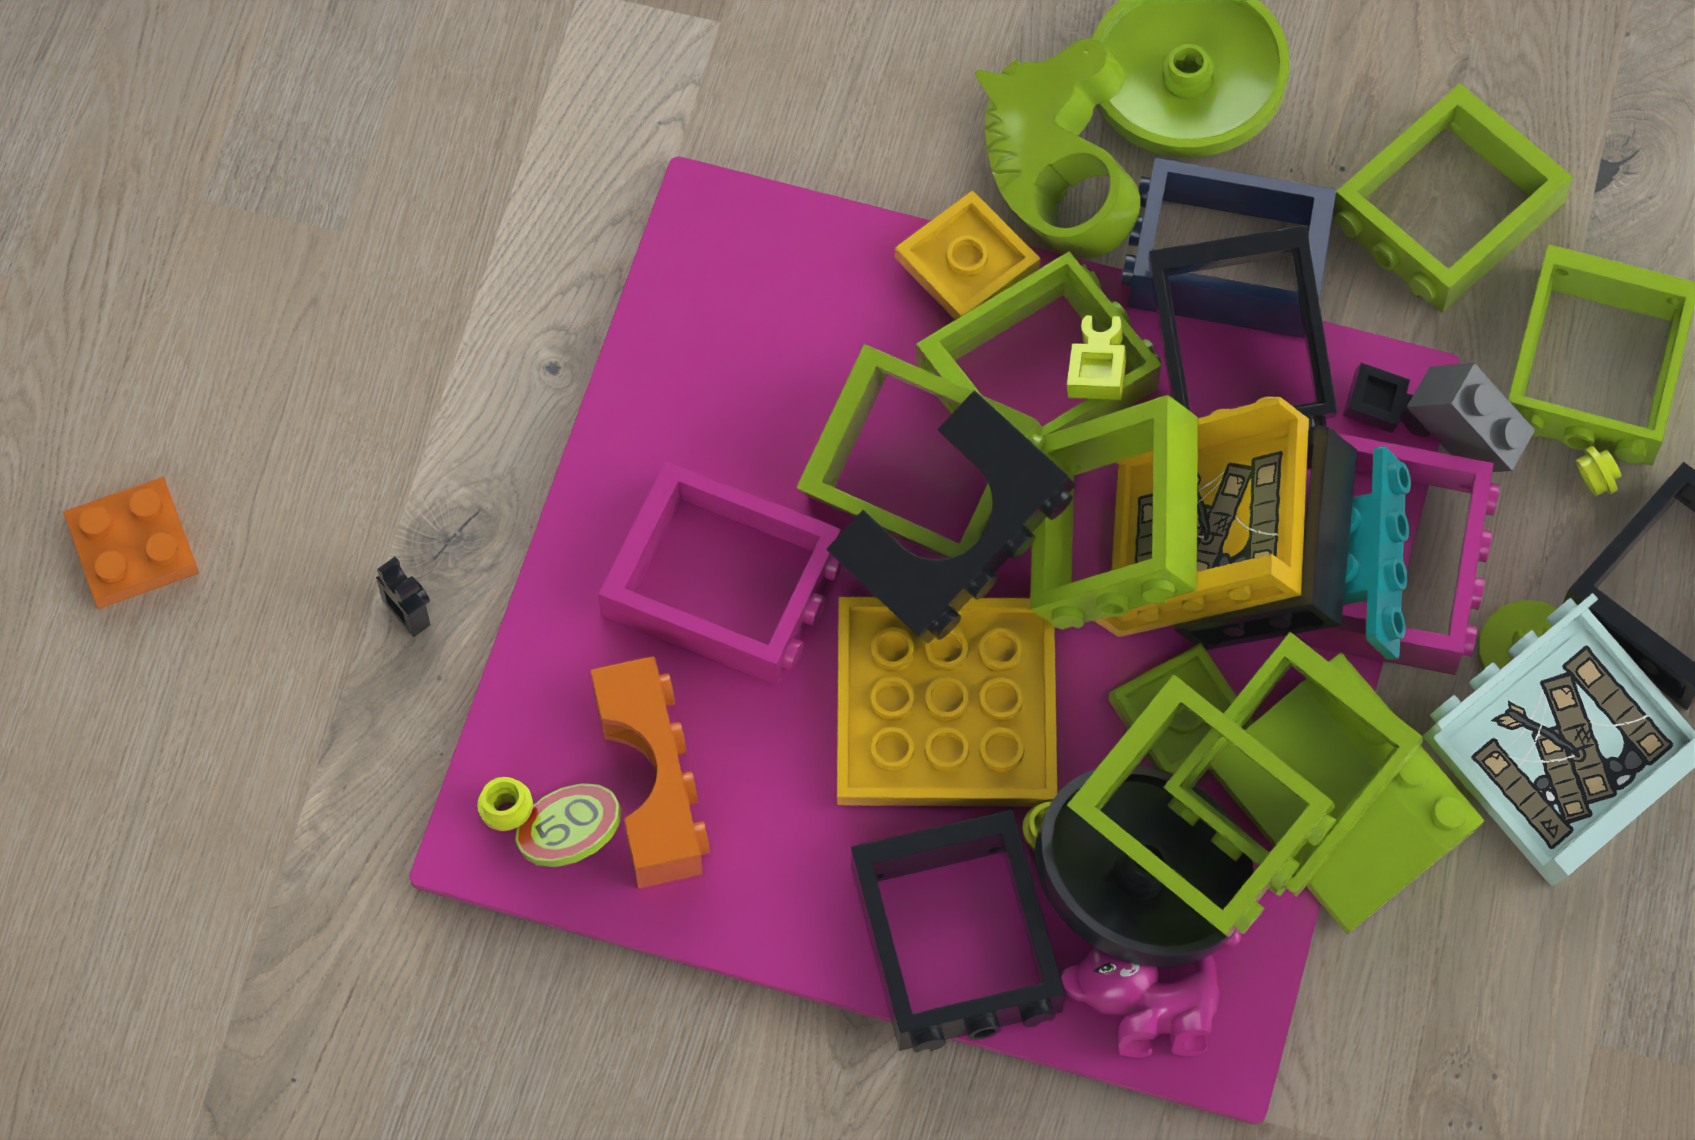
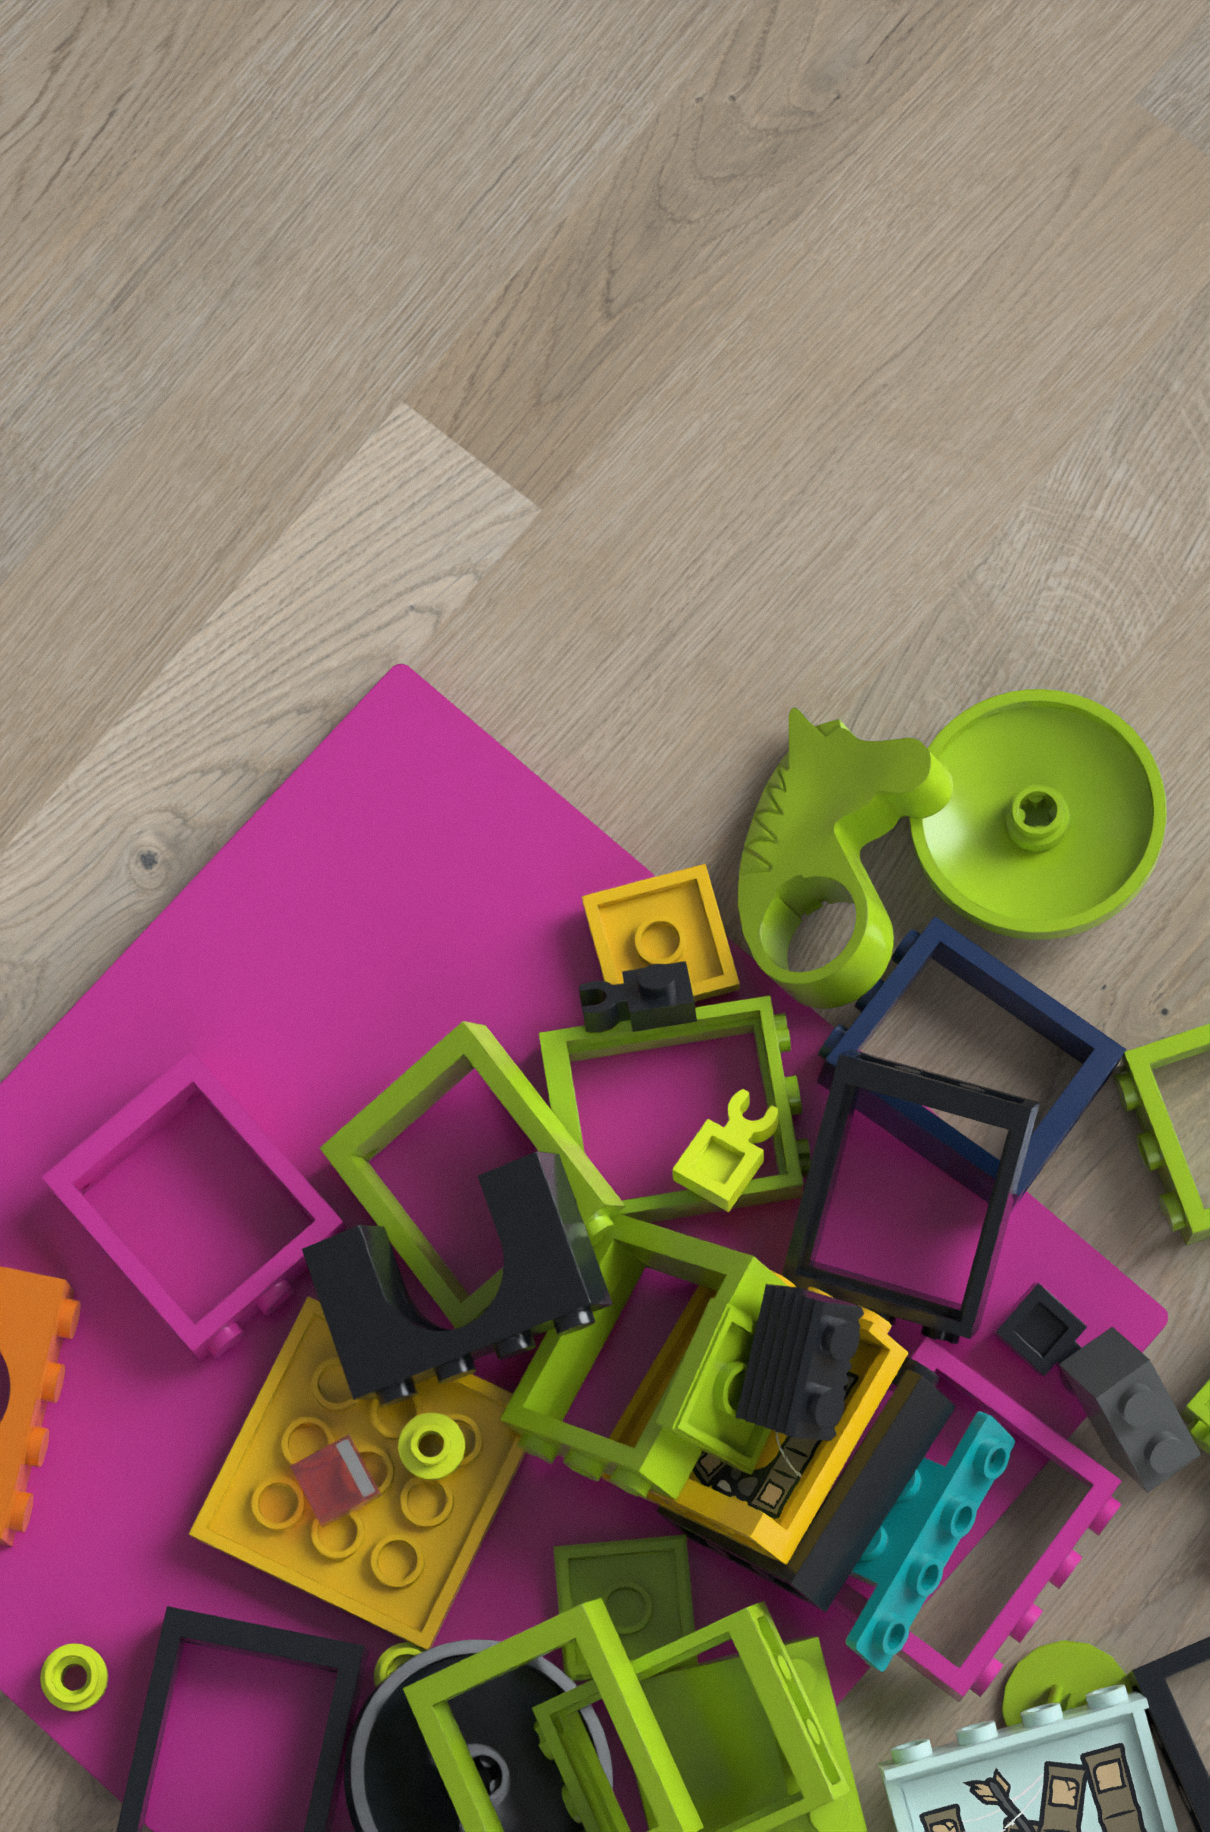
camera: 30 degrees right, 10 degrees up
(801, 924) = (53, 1677): none -> neon yellow plate
(929, 709) = (335, 1480): none -> clear pink tile
(982, 287) = (647, 997): none -> black plate
(984, 667) = (431, 1467): none -> neon yellow plate
(1196, 493) = (709, 1387): none -> lime tile
(1240, 449) = (799, 1362): none -> black brick

